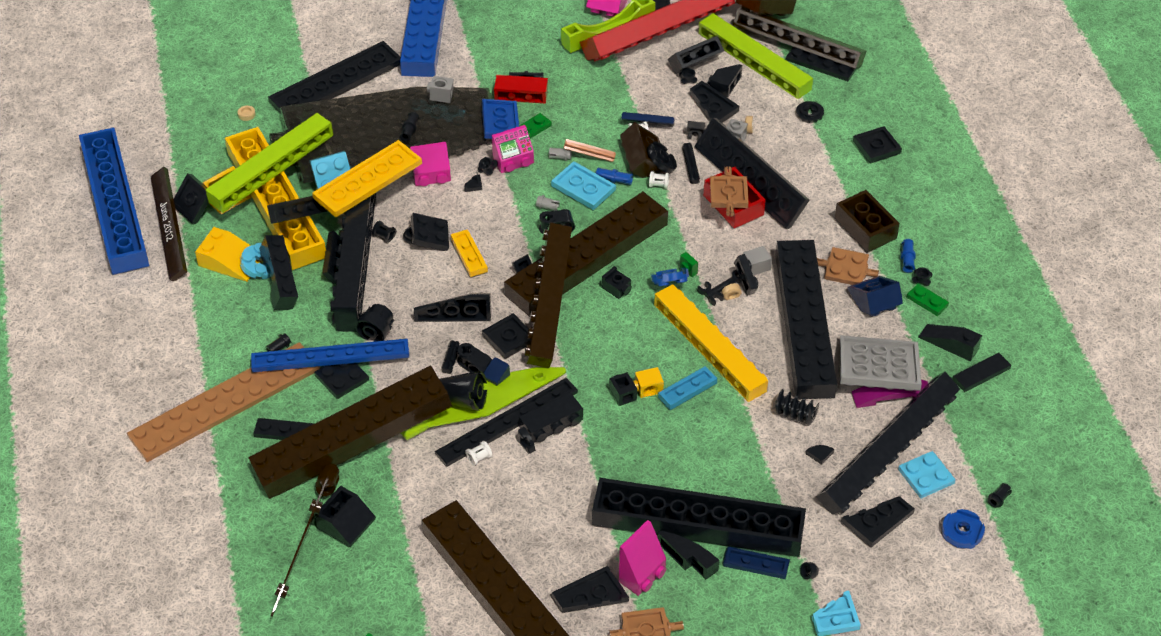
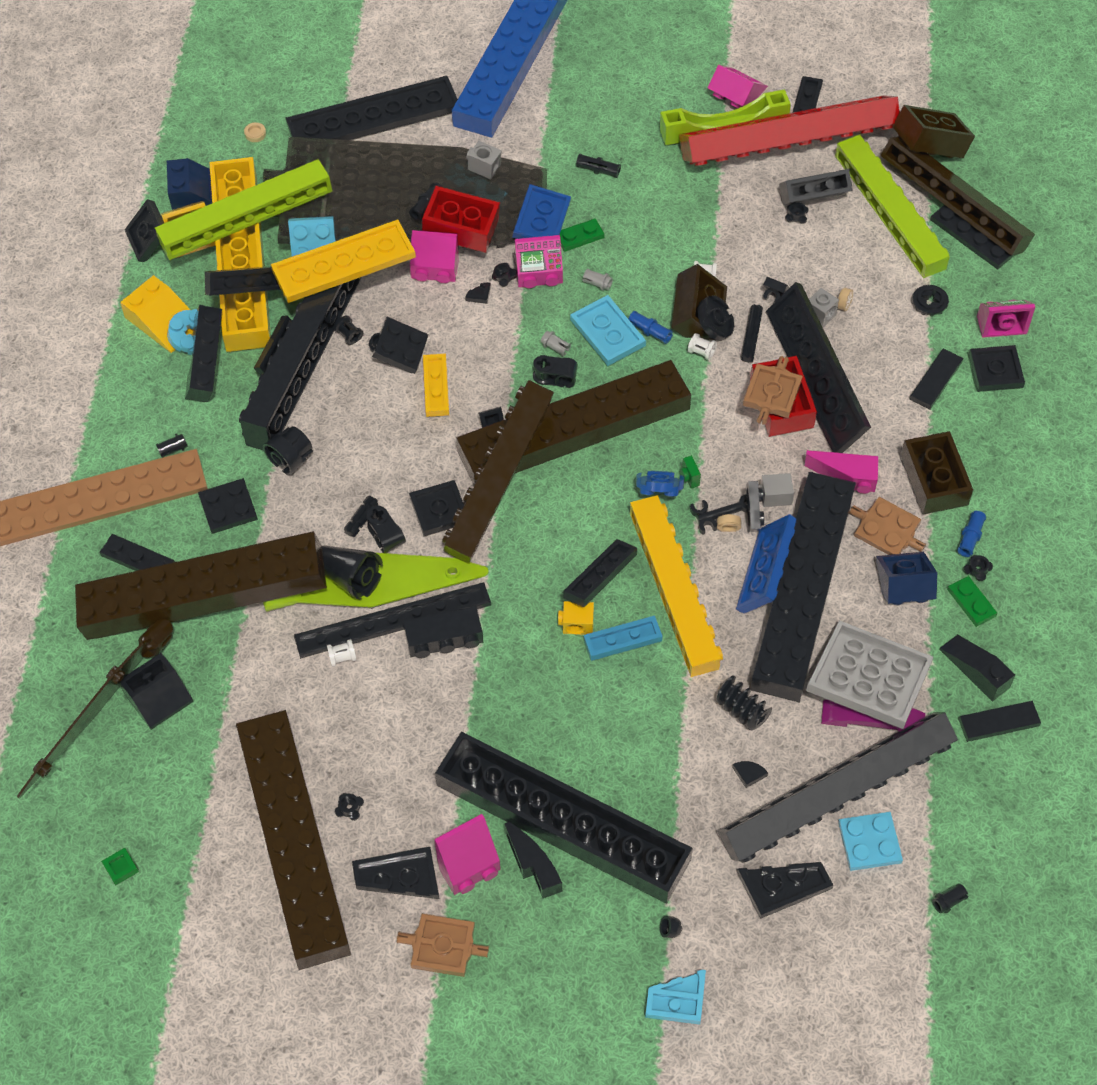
camera: 20 degrees right, 10 degrees up
(113, 201) = (59, 211): blue brick -> none
(168, 224) = (110, 256): dark brown tile -> none
(209, 158) = (188, 183): none -> dark blue slope
(329, 355) = (221, 477): blue tile -> none
(444, 127) = (464, 215): none -> red brick
(456, 309) = (400, 457): black wedge -> none
(497, 371) = (403, 552): dark blue slope -> none
(521, 89) = (584, 180): red brick -> none
(525, 440) = (402, 652): black tile -> none
(531, 552) = (349, 799): none -> black plate
(589, 150) = (632, 285): axle -> none
(616, 283) = (593, 473): black brick -> none
(623, 388) = (543, 617): black brick -> none
(648, 118) = (722, 259): dark blue tile -> none
(653, 347) = (600, 573): none -> black plate
(713, 102) = (813, 258): black wing -> none
(726, 79) = (840, 230): black slope -> none
(756, 562) = (611, 896): dark blue tile -> none
(772, 310) = (766, 564): none -> blue plate
(809, 230) = (849, 467): none -> dark pink slope
(837, 162) = (936, 379): none -> black tile
(869, 109) = (1005, 318): none -> dark pink slope
(959, 538) = (879, 944): blue plate -> none

